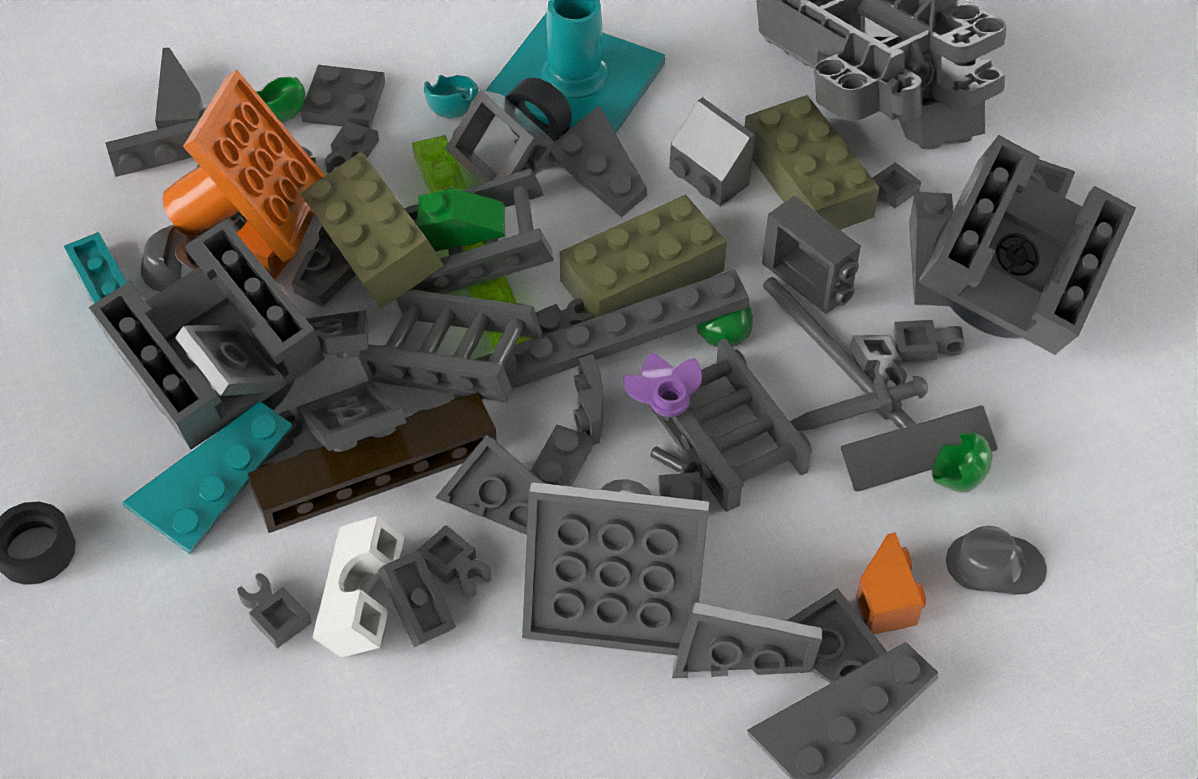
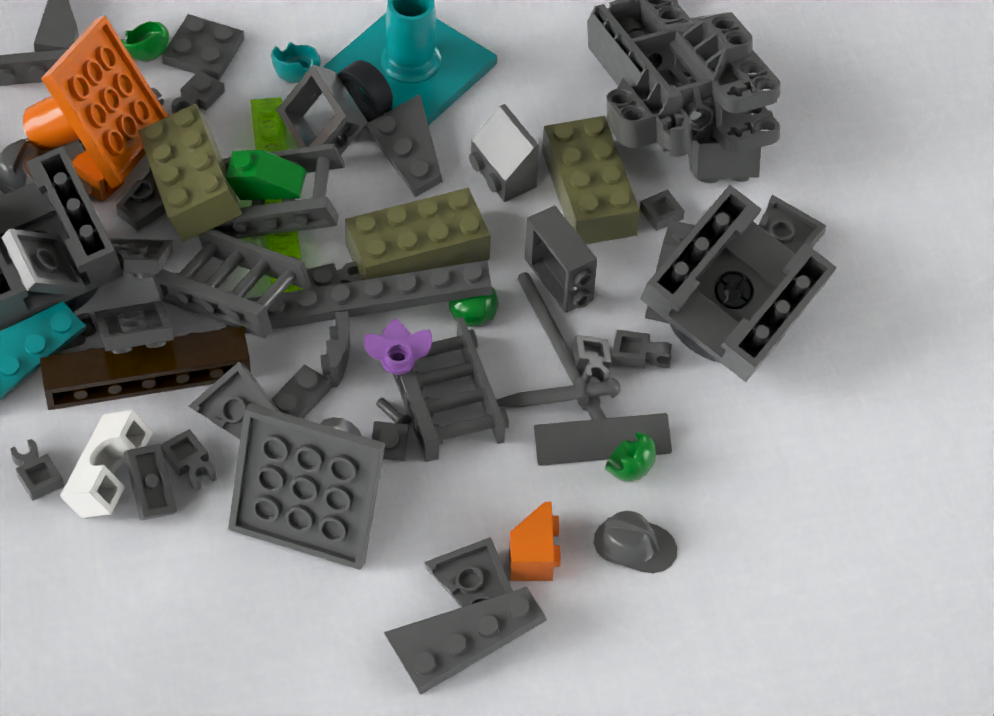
camera: 10 degrees right, 0 degrees up
(736, 640) = (392, 561): dark grey wing -> none

